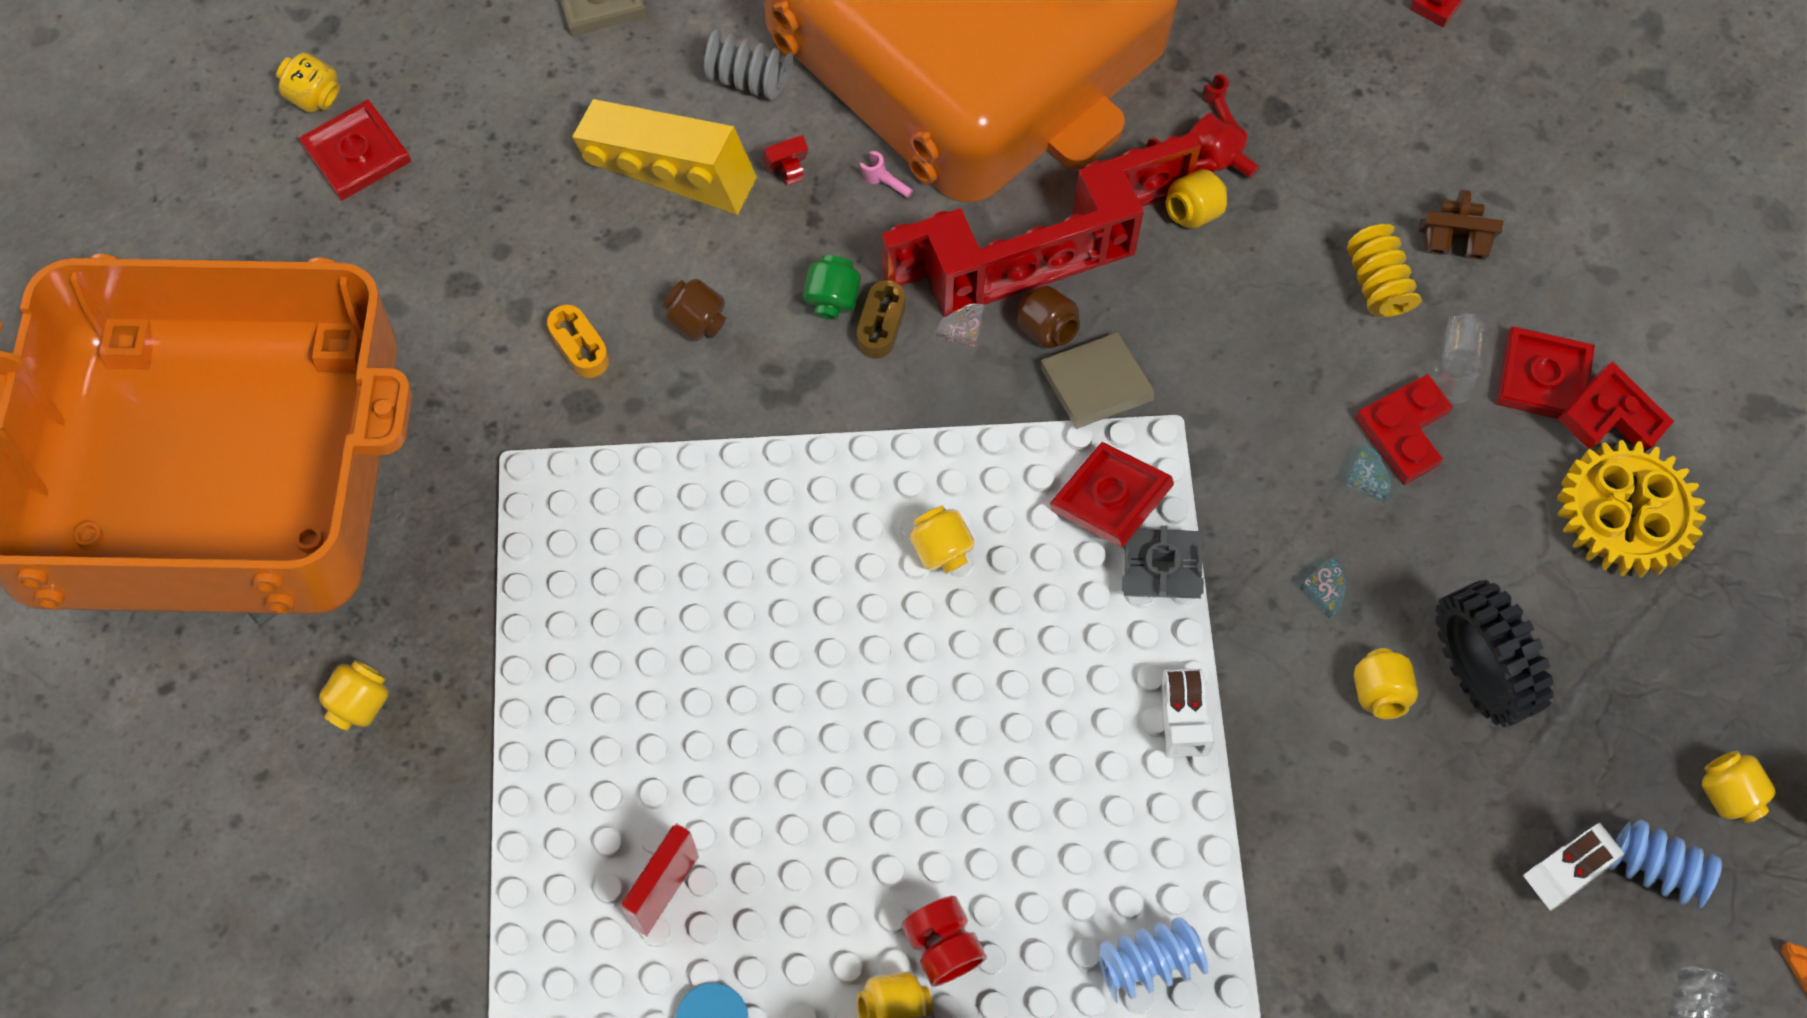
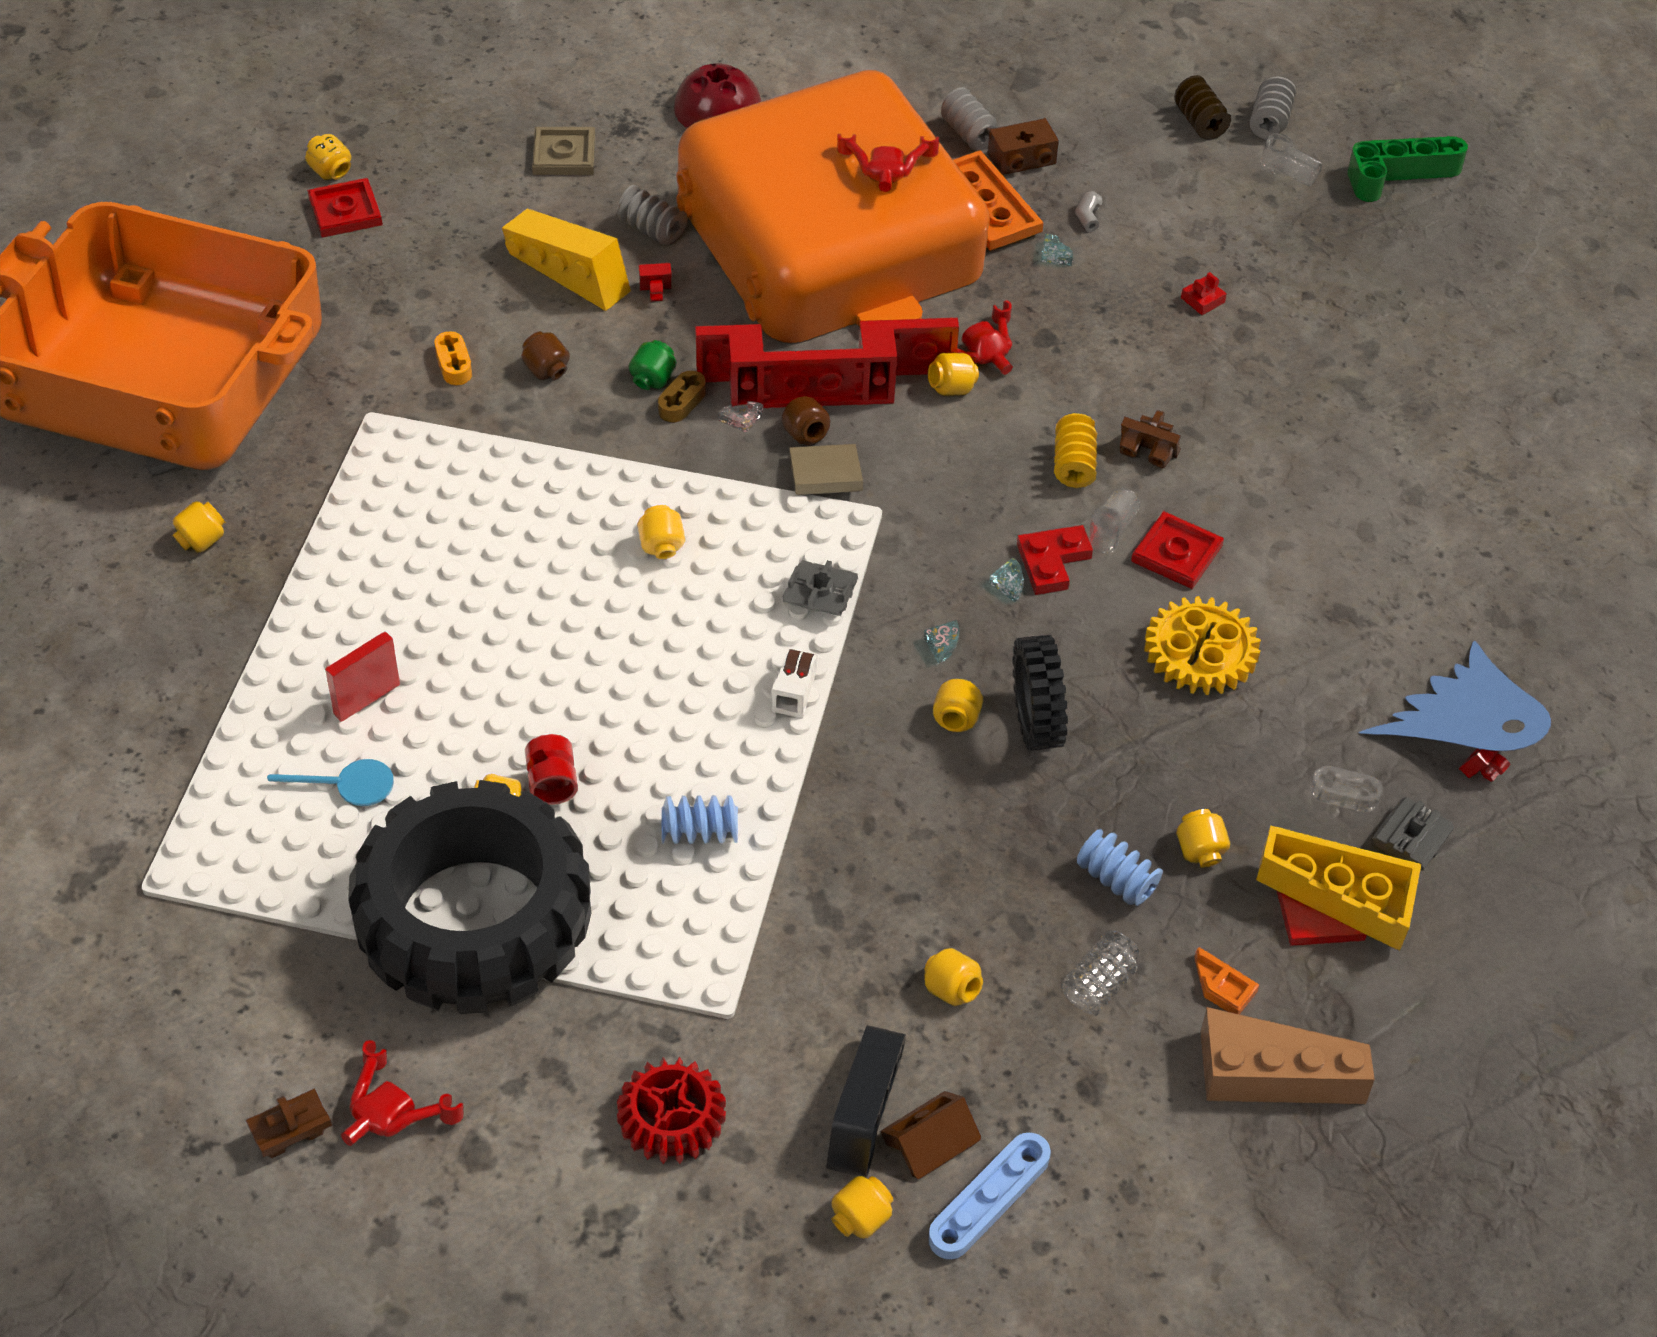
camera: 15 degrees right, 15 degrees down
(879, 174) = (720, 307): bright pink hand -> none
(1112, 494) = (800, 535): red tile -> none
(1573, 866) = (1046, 848): white leg -> none
(1618, 402) = (1217, 571): red plate -> none

